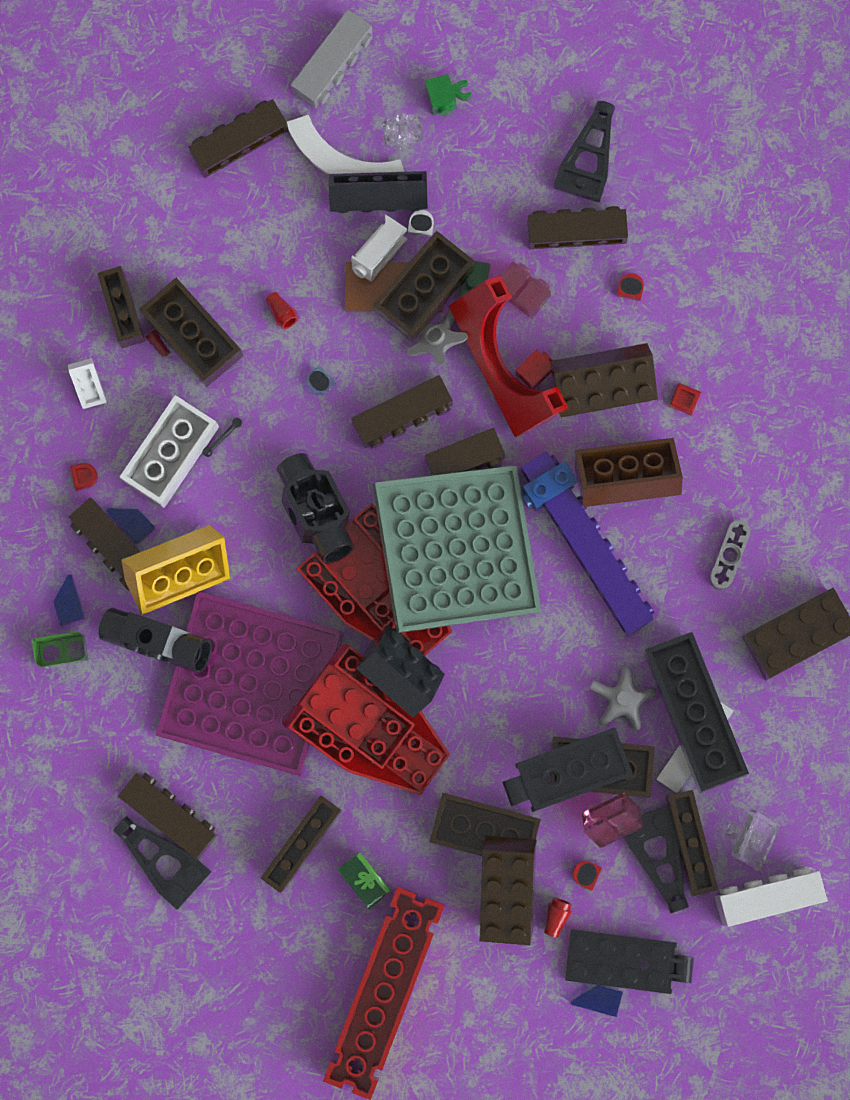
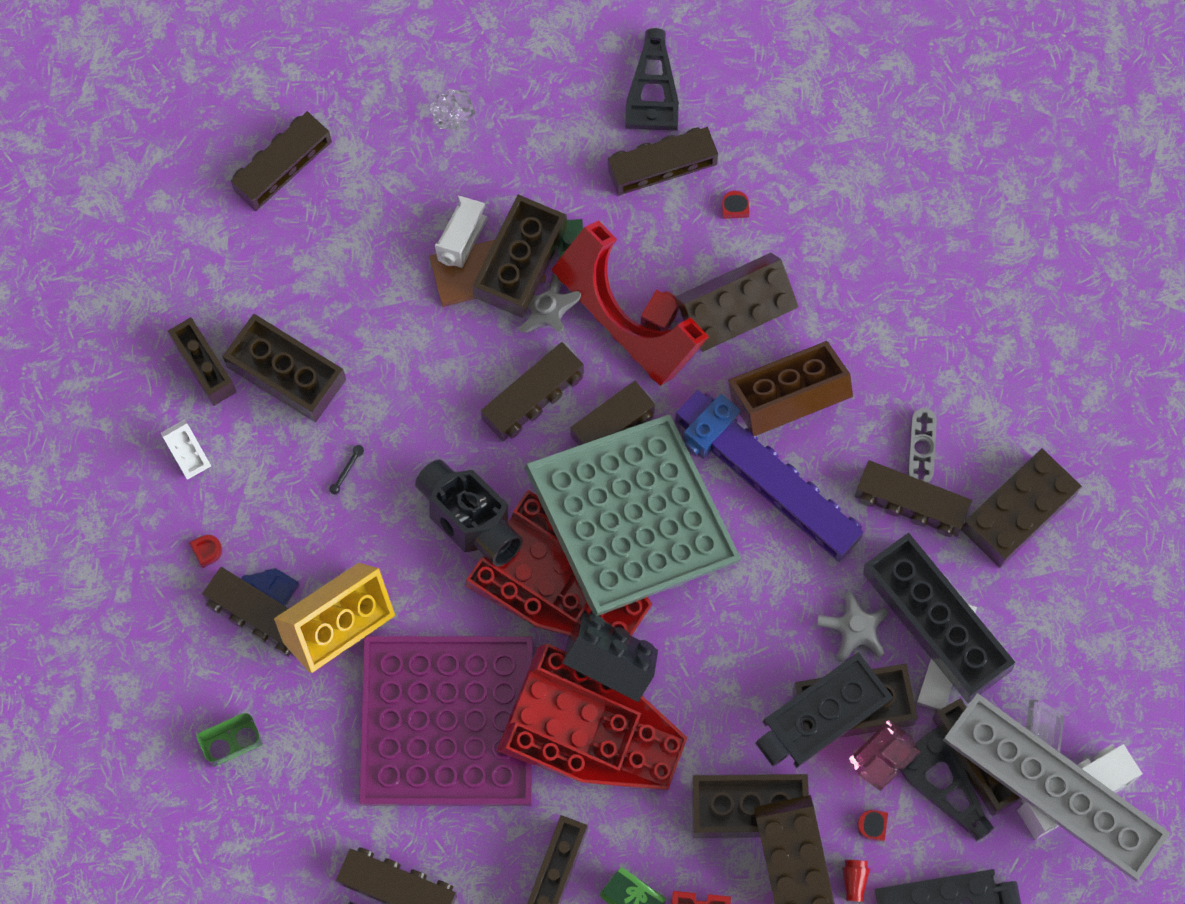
camera: 20 degrees left, 10 degrees down
(68, 603) = (225, 689): clear blue tile -> none
(154, 339) = (246, 387): dark red piece -> none
(155, 640) = (332, 695): black brick -> none
(169, 451) = (294, 497): white brick -> none
(282, 312) = (375, 323): red cone -> none
(319, 381) = (435, 385): tile -> none
(326, 157) = (398, 162): white tile -> none
(332, 59) = (358, 58): light grey brick -> none
(378, 191) = (444, 176): black brick -> none
(421, 223) = (497, 198): tile -> none
(442, 94) = (485, 65): green brick -> none
(526, 292) = (632, 236): clear pink piece -> none
(685, 399) = (825, 302): red tile -> none
(707, 599) = (913, 499): none -> dark brown brick
(748, 893) = (1057, 787): none -> light grey plate

